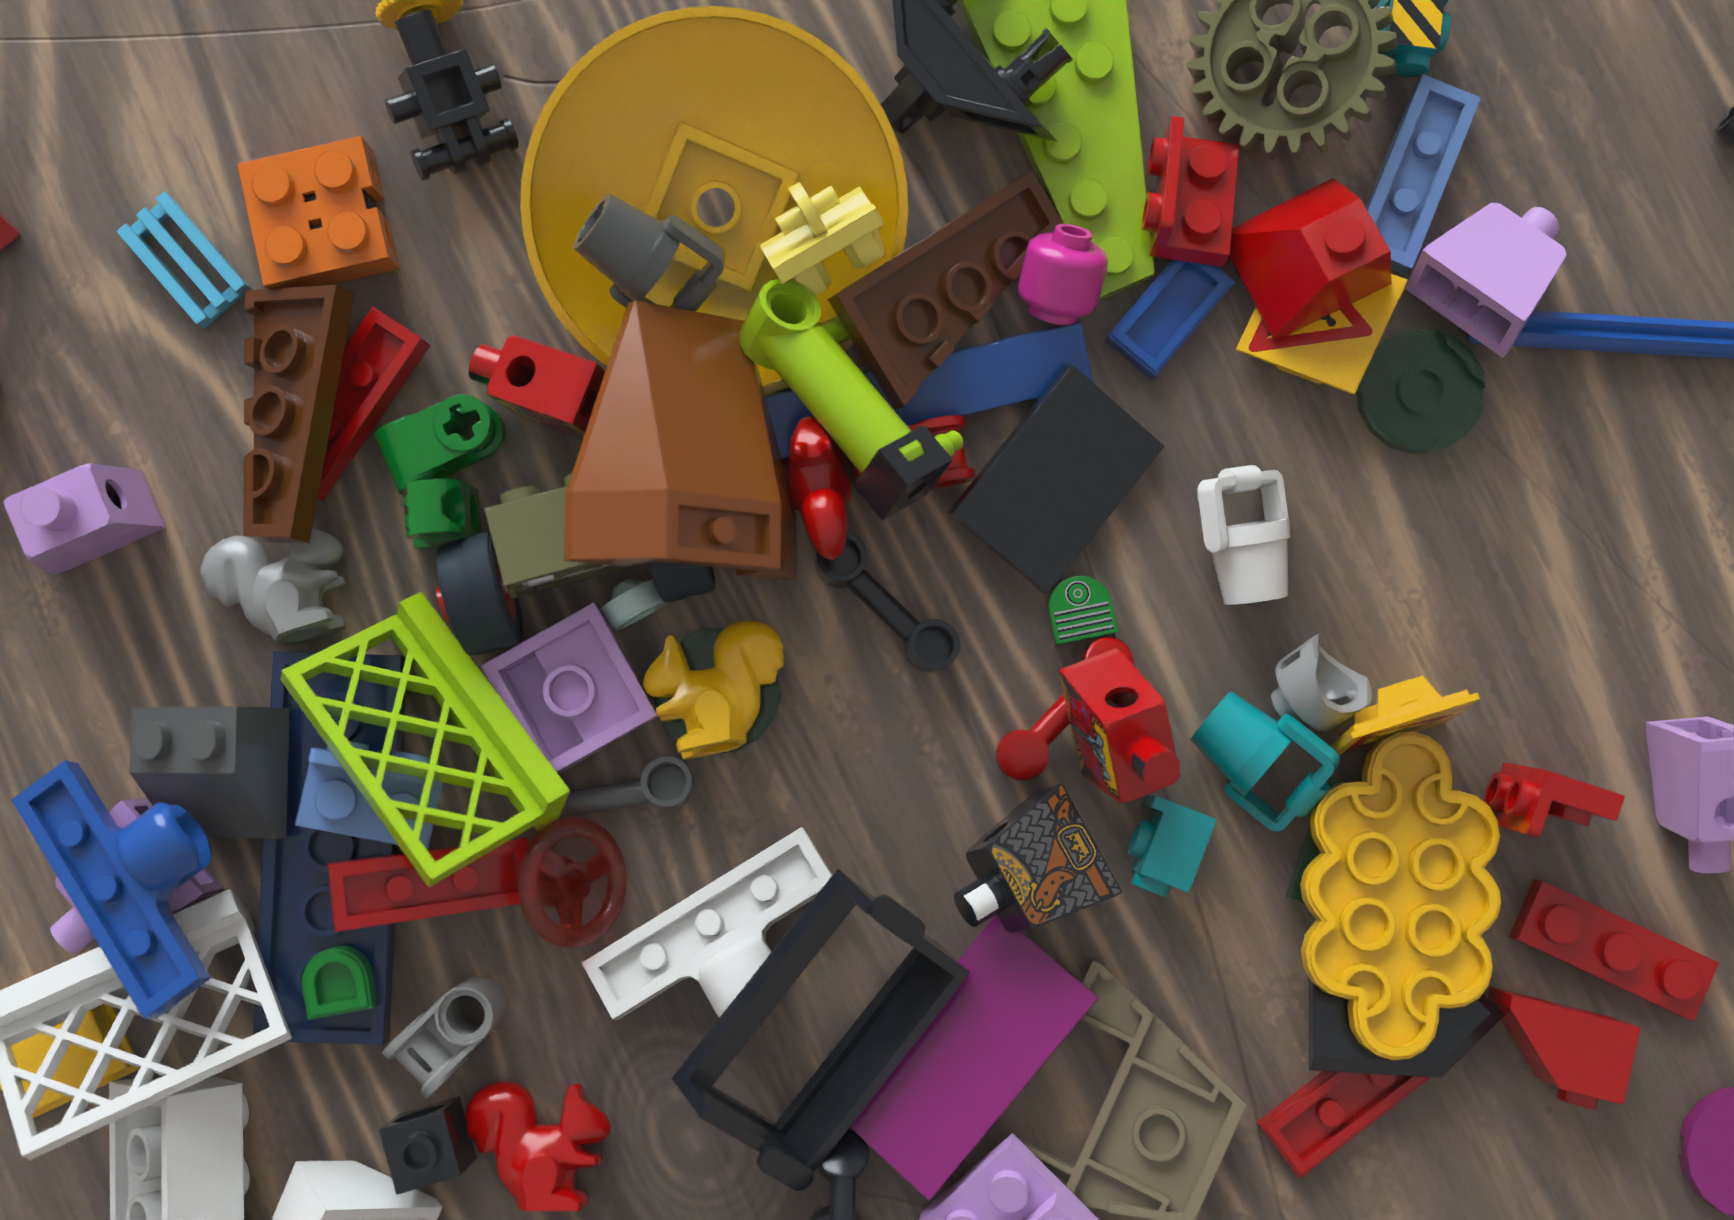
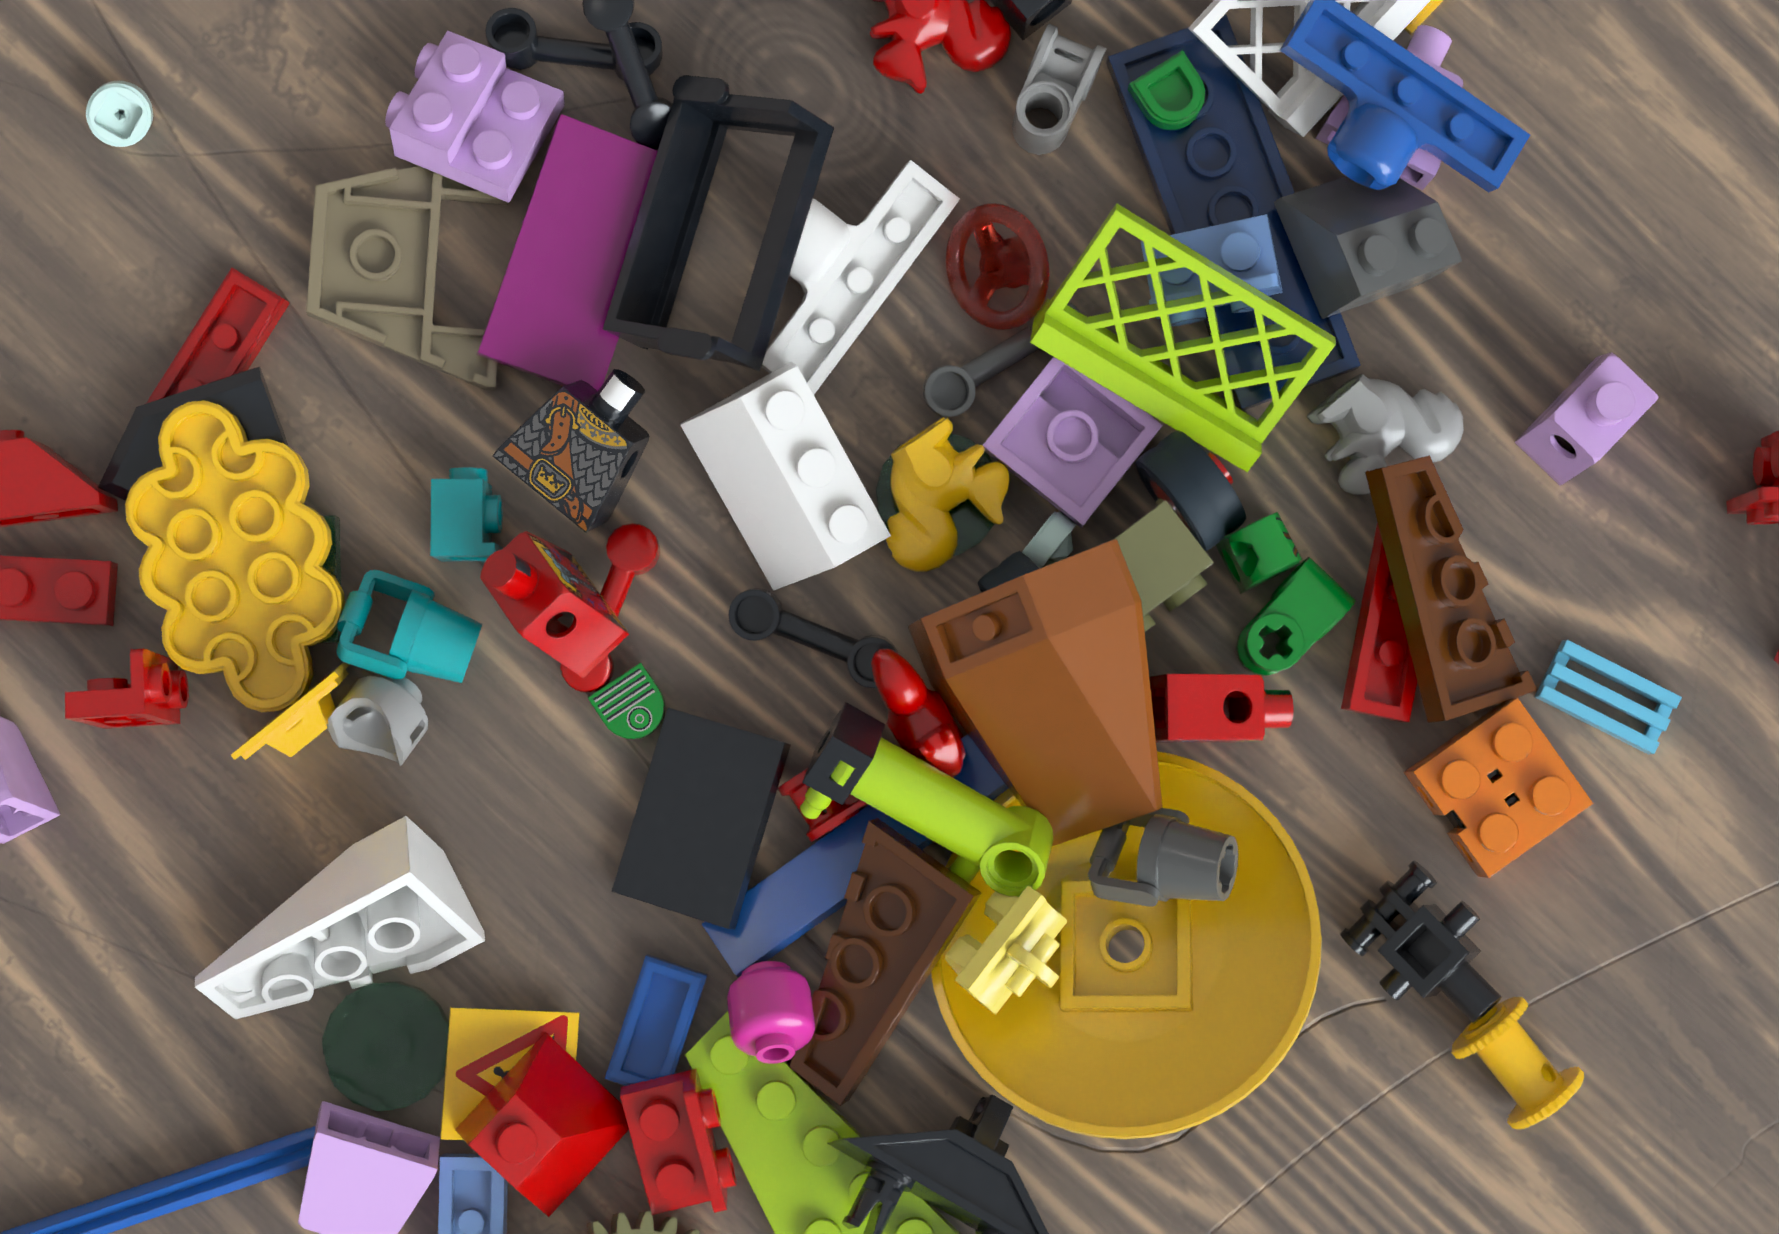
camera: 160 degrees right, 0 degrees up
(392, 891) = (1156, 191): red plate -> none
(853, 760) = (785, 478): none -> white slope
(1251, 555) = (493, 821): white piece -> none
(1393, 517) = (365, 913): none -> white wedge

